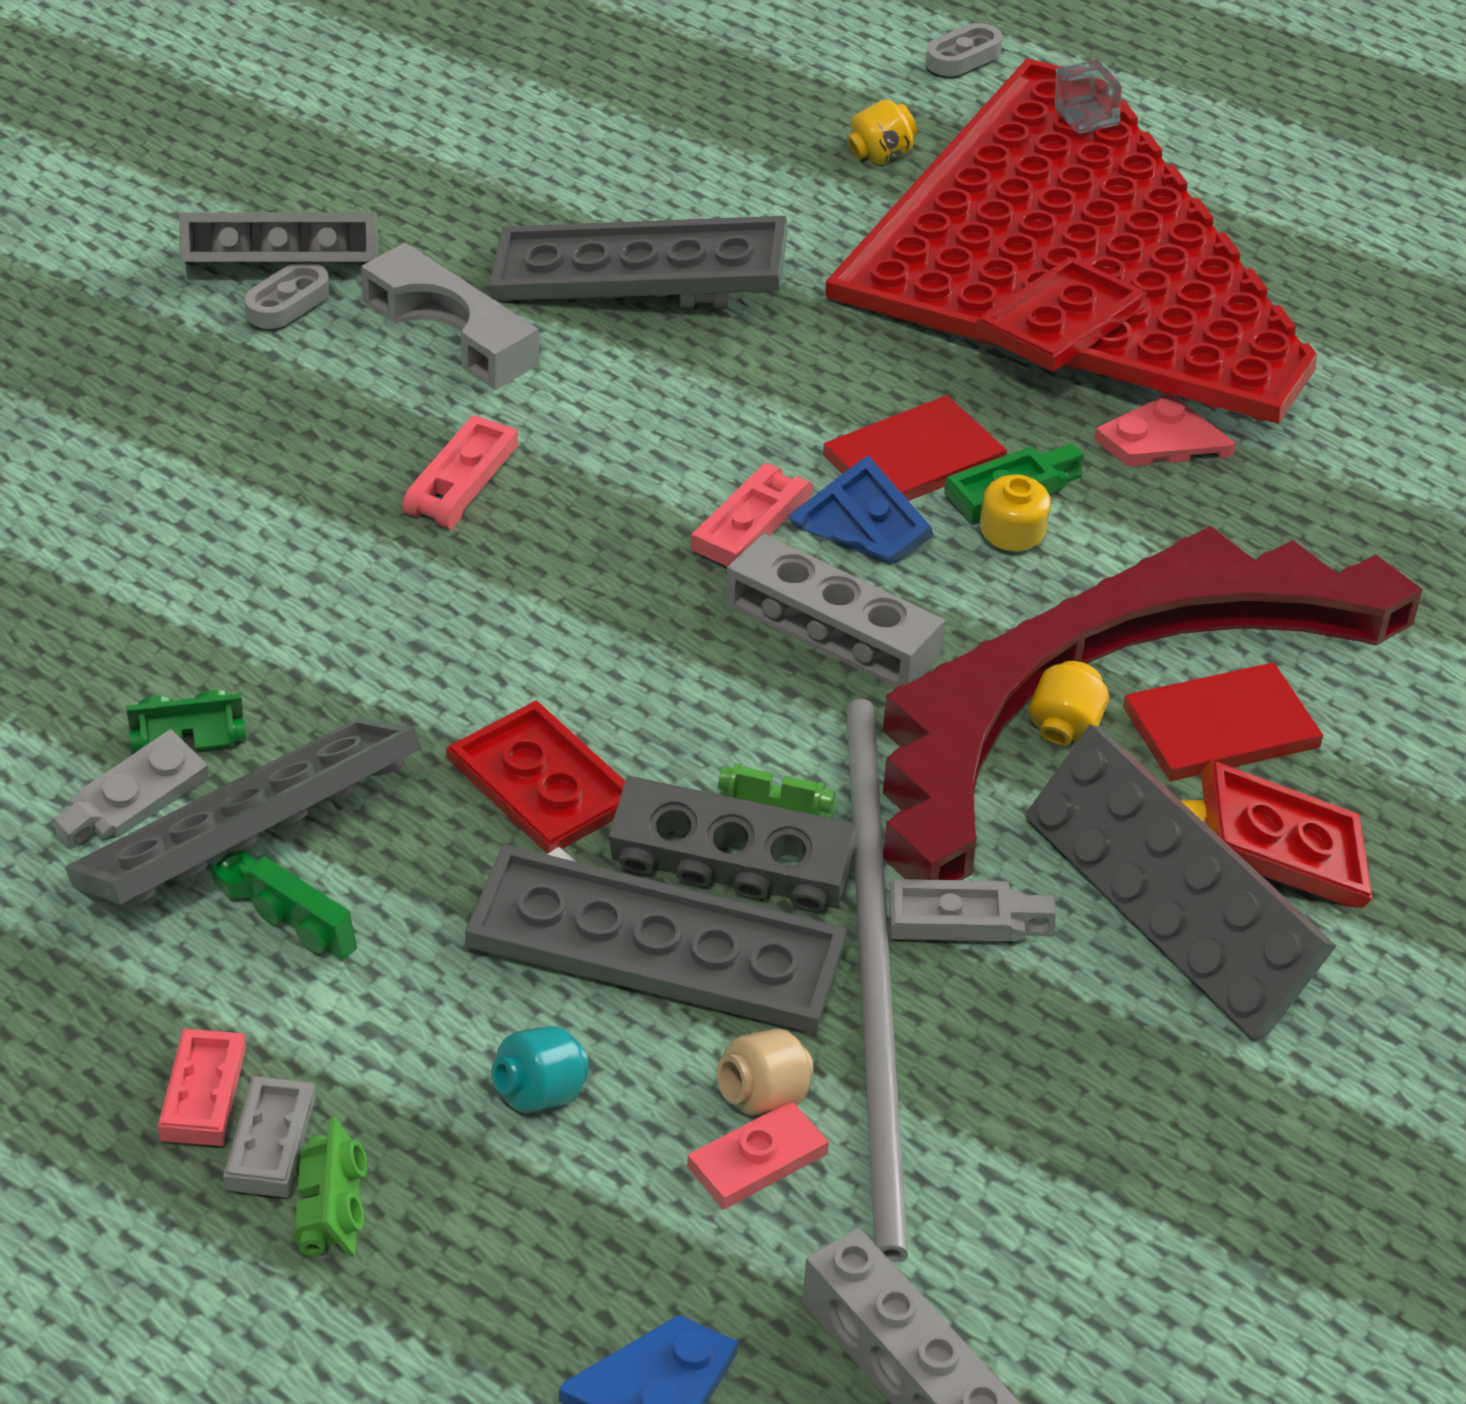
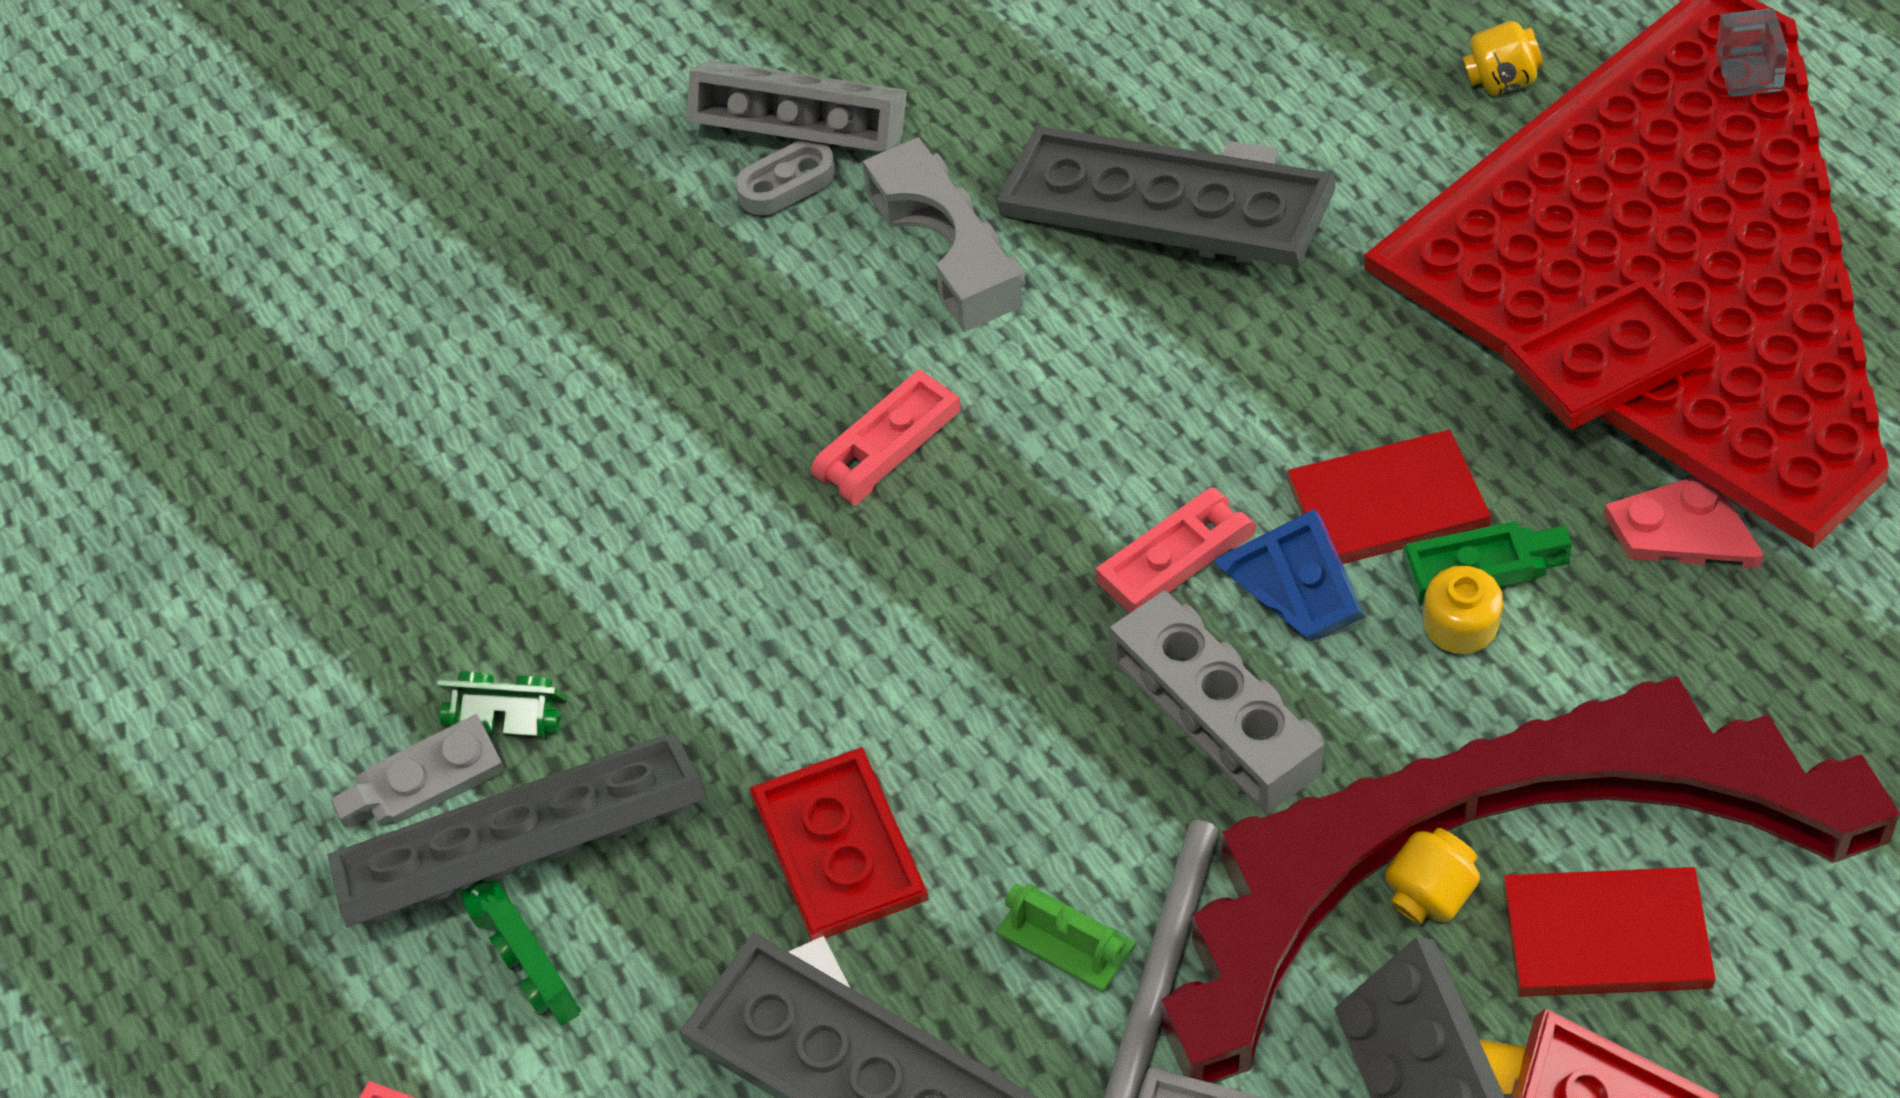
camera: 25 degrees right, 10 degrees up
(712, 820) = (917, 925): dark grey brick -> none

